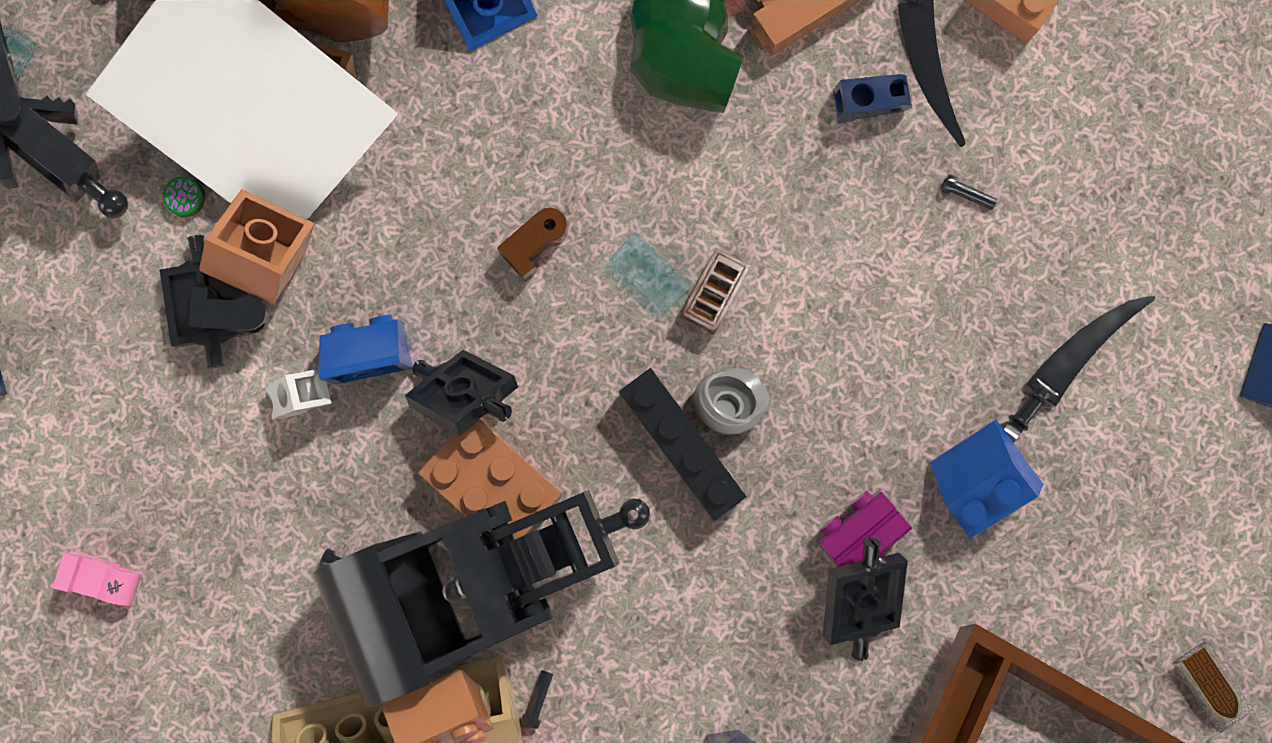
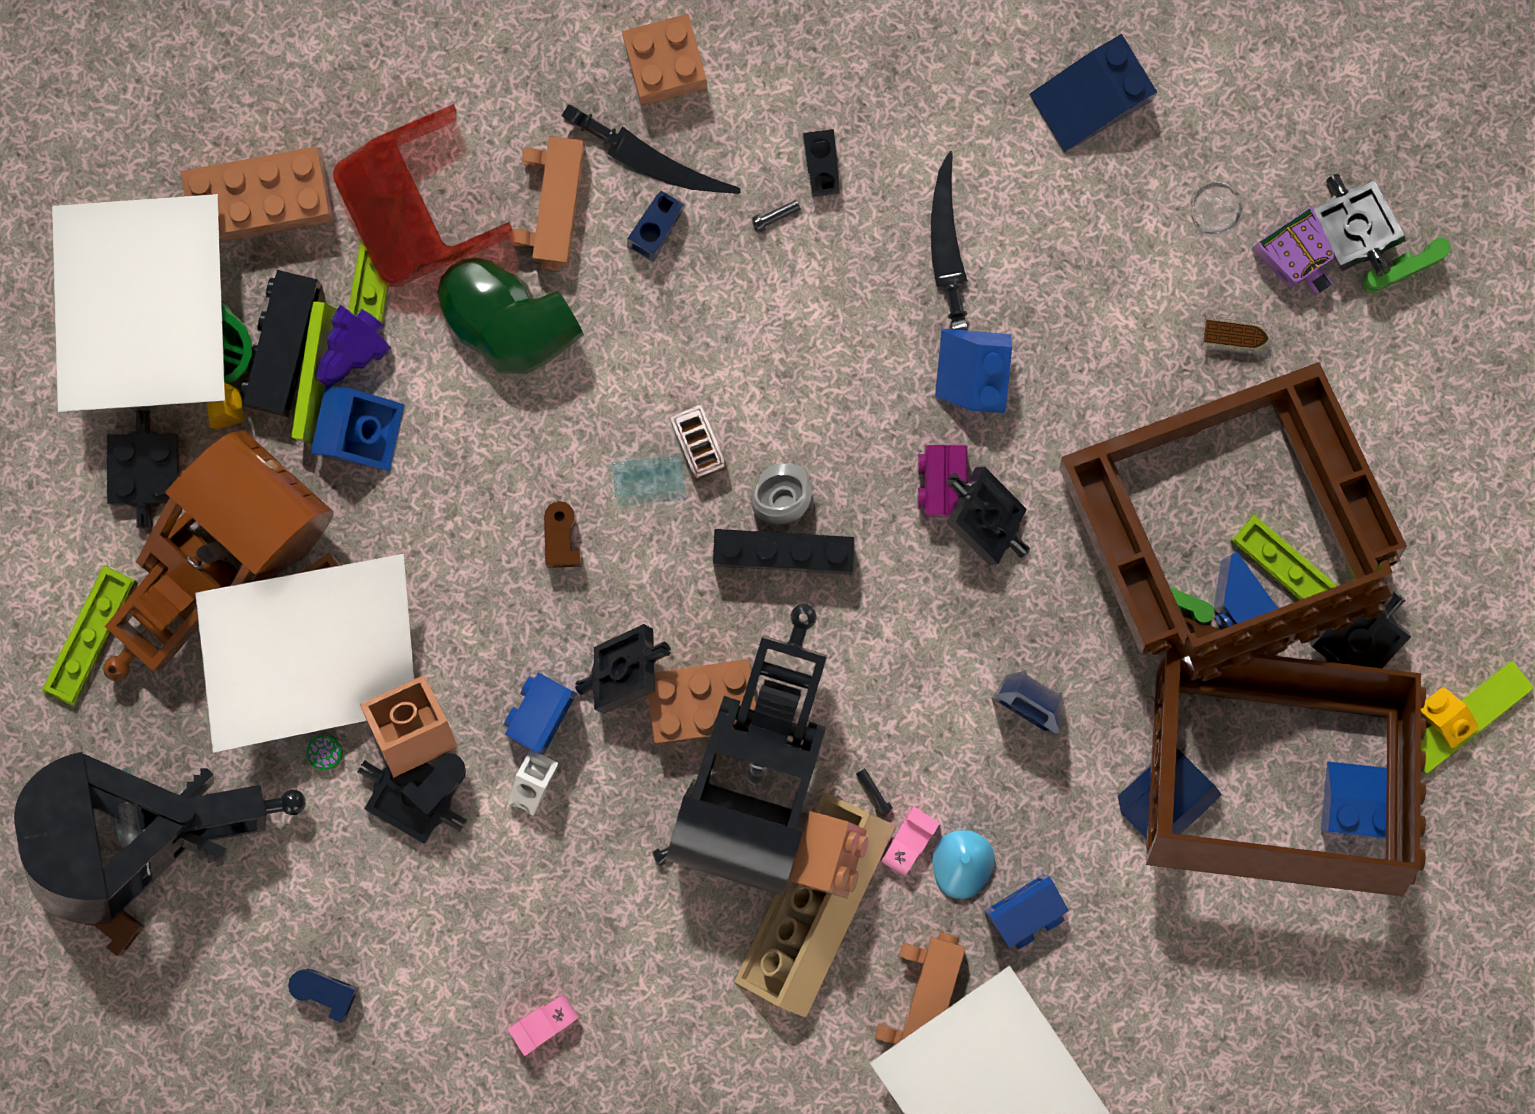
camera: 55 degrees left, 0 degrees up
(1050, 192) = (821, 162): none -> black leg

